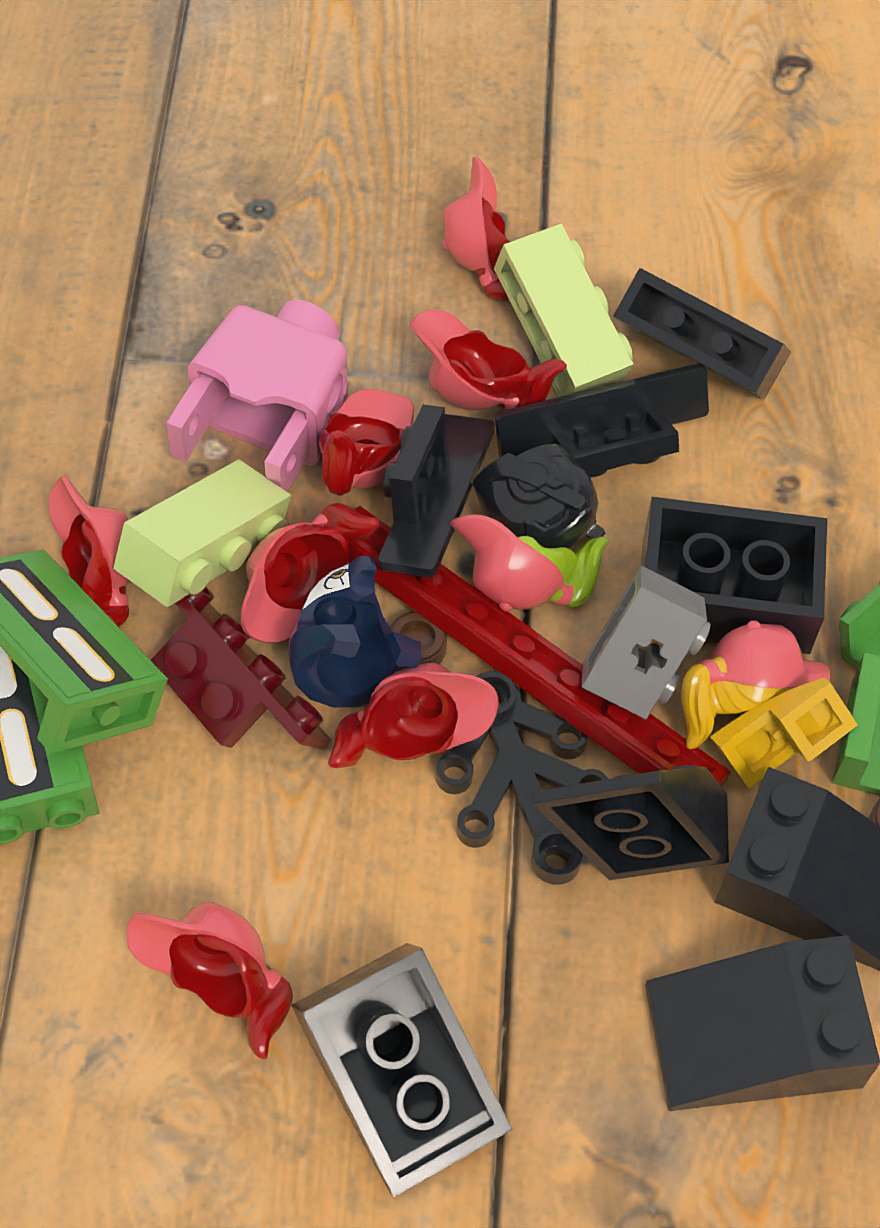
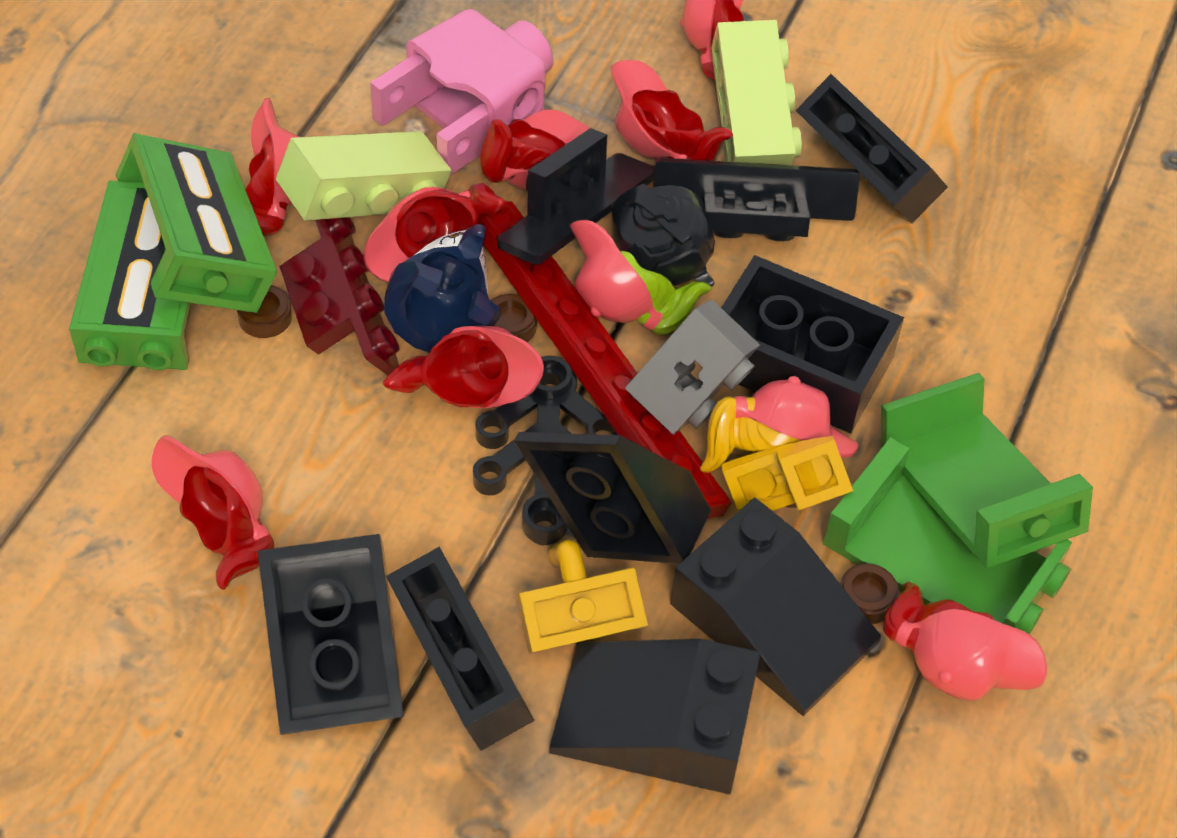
camera: 20 degrees right, 5 degrees down
(167, 725) = (272, 317): none -> reddish brown tile
(545, 1037) = (459, 649): none -> black brick
(639, 941) = (581, 605): none -> yellow plate

